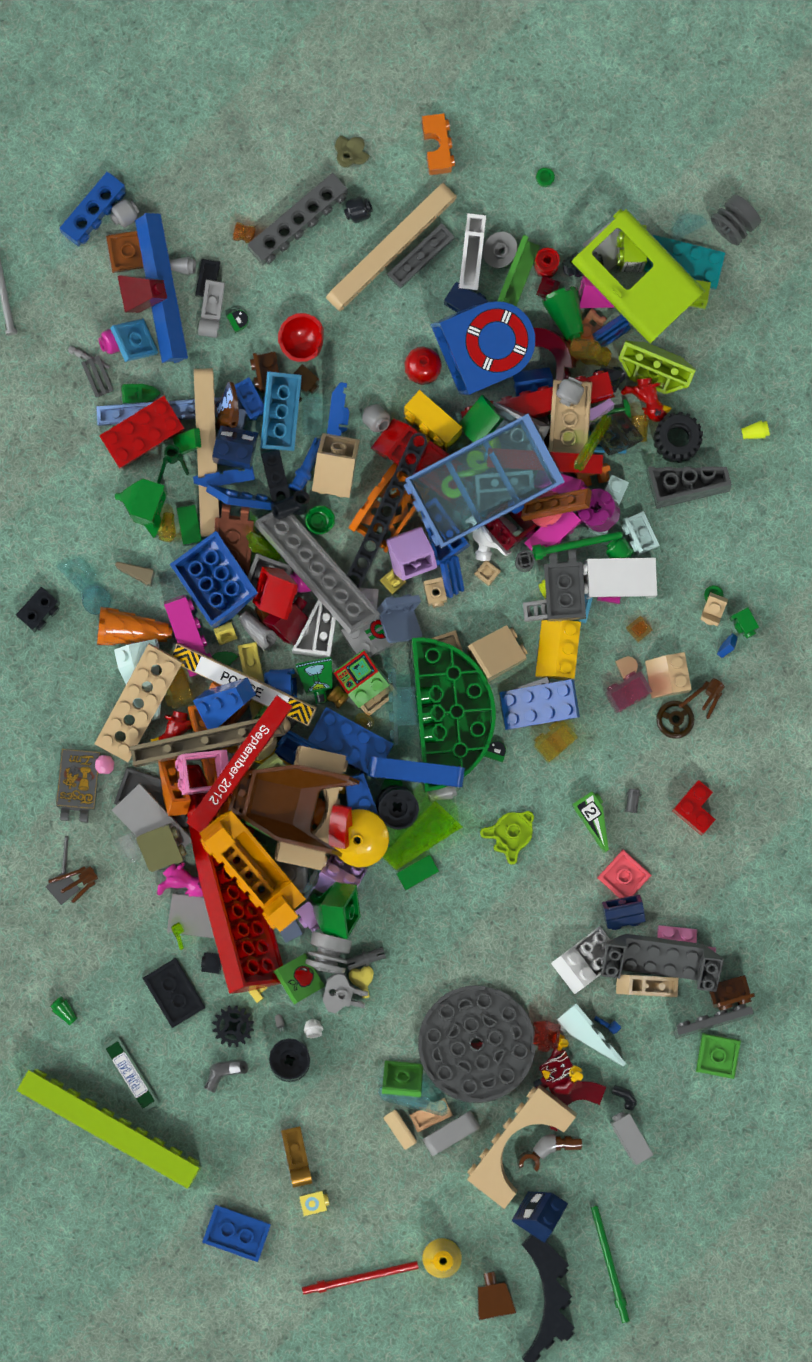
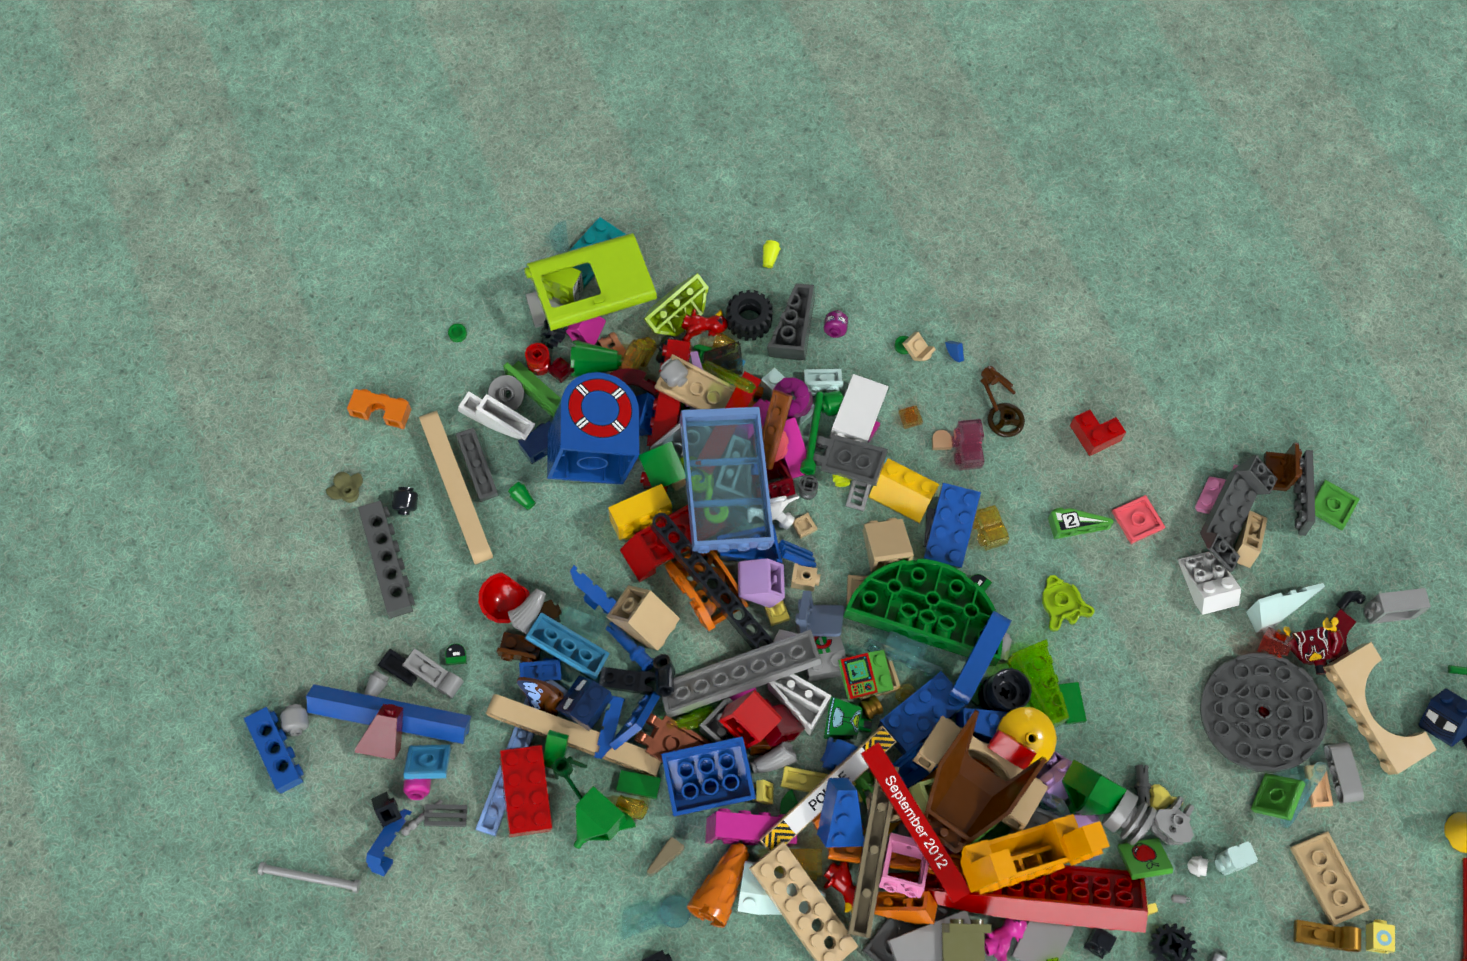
camera: 65 degrees left, 15 degrees down
(38, 336) = (386, 837): none -> blue piece
(80, 324) = (386, 809): none -> black brick
(124, 251) = (332, 736): dark orange tile -> none
(138, 393) = (482, 781): green plate -> none
(243, 232) = (373, 613): clear orange wheel -> none
(290, 362) = (527, 613): none -> light grey piece
(295, 1050) = (1235, 892): black wheel -> none
(317, 516) = (689, 654): green hair -> none
(328, 1055) = (1235, 858): none -> light aqua brick
(350, 1147) = (1329, 878): none -> tan tile
(376, 418) = (613, 564): light grey head -> none
(400, 1129) = (1326, 820): tan slope -> none
(407, 310) = (521, 495): none -> green cone
(423, 365) = (581, 503): red cylinder -> none
(547, 1145) = (1381, 691): reddish brown piece -> none
(612, 331) = (625, 329): blue tile -> none
(614, 1027) = (1280, 584): blue hand -> none
(623, 912) = (1174, 530): dark blue brick -> none
(632, 800) = (1070, 483): dark grey pin -> none
(668, 675) = (963, 404): tan slope -> none
(705, 522) = (836, 324): none -> magenta head
(735, 219) = (576, 194): dark grey wheel -> none
(745, 623) = (940, 327): green brick -> none

